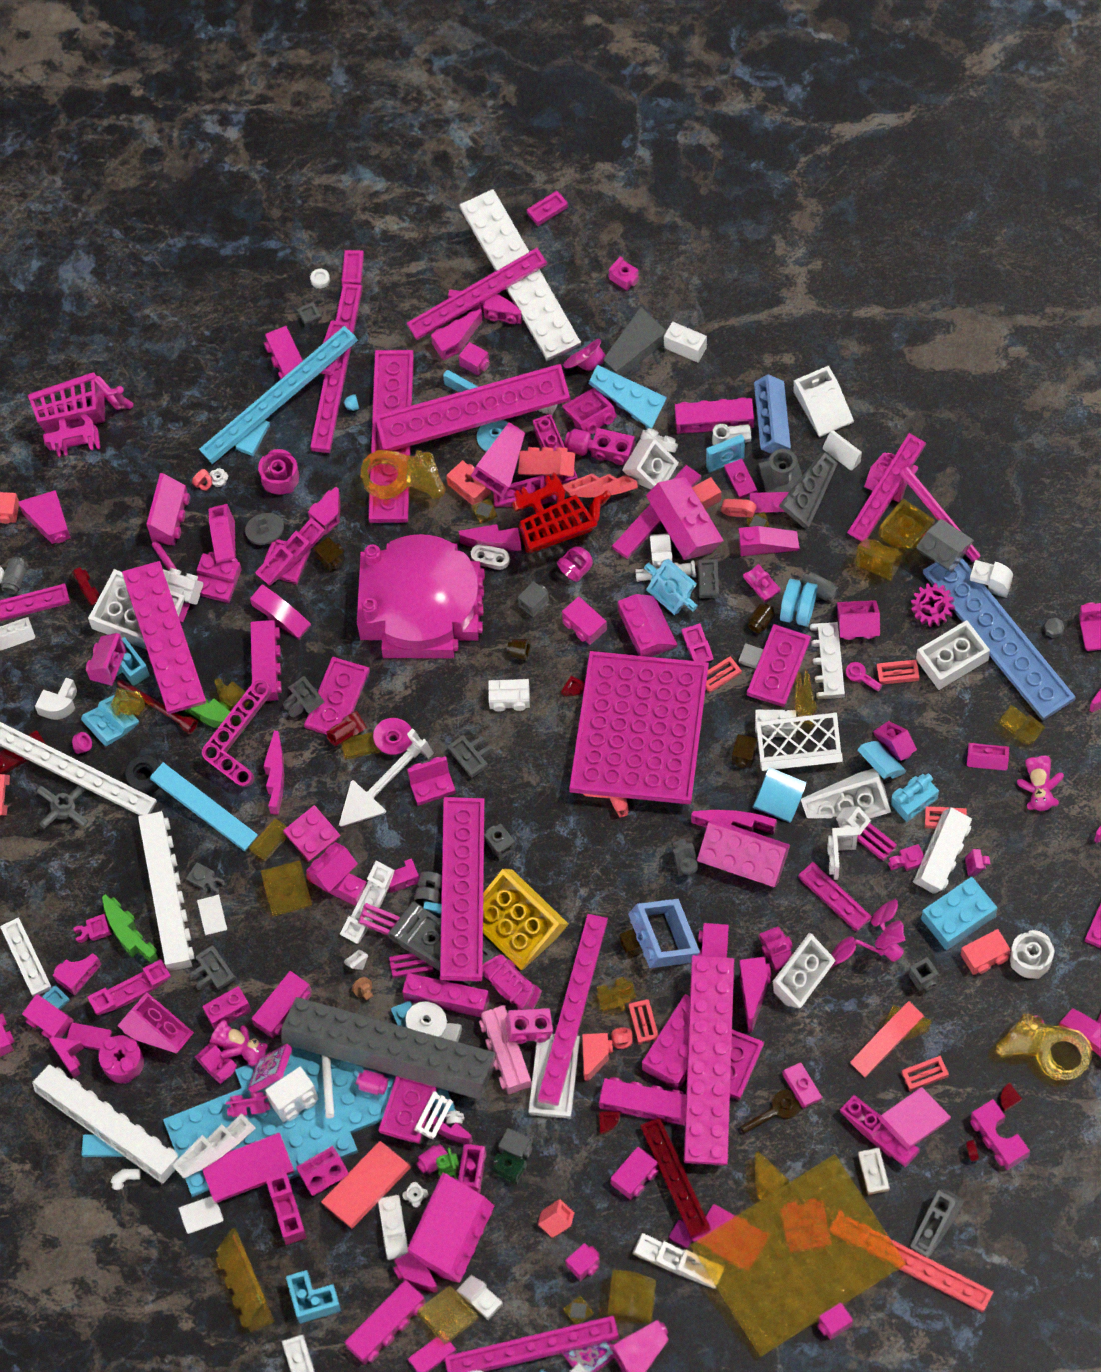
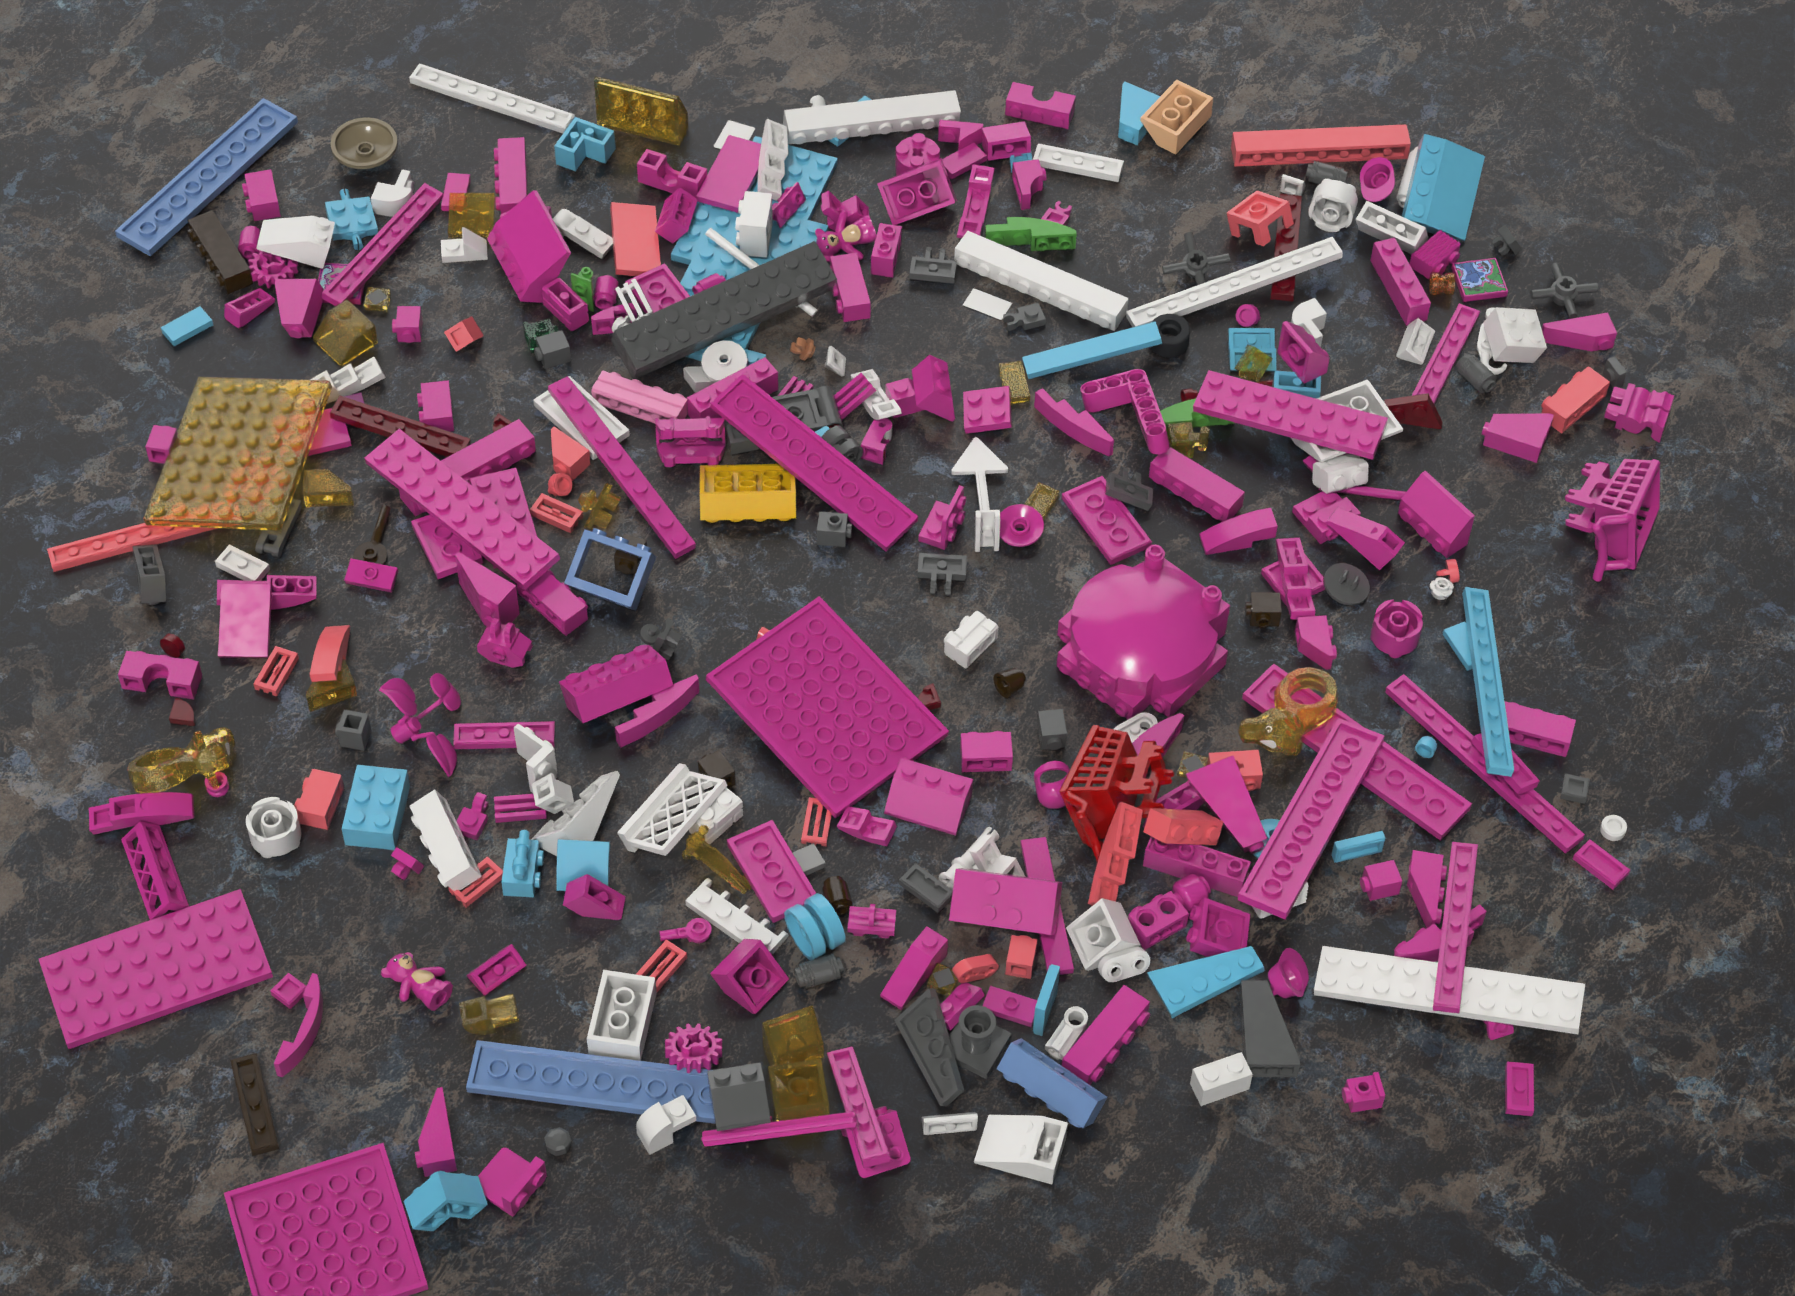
camera: 125 degrees right, 10 degrees down
(270, 1068) = (792, 223): tile -> none
(286, 888) = (962, 355): clear yellow slope -> none
(349, 726) = (1063, 500): dark red piece -> none
(415, 1188) = (594, 263): white plate -> none
(527, 1020) = (641, 416): dark pink brick -> none
(671, 586) = (934, 841): medium azure plate -> none
(779, 795) = (643, 763): medium azure slope -> none
(802, 972) = (457, 639): white slope -> none

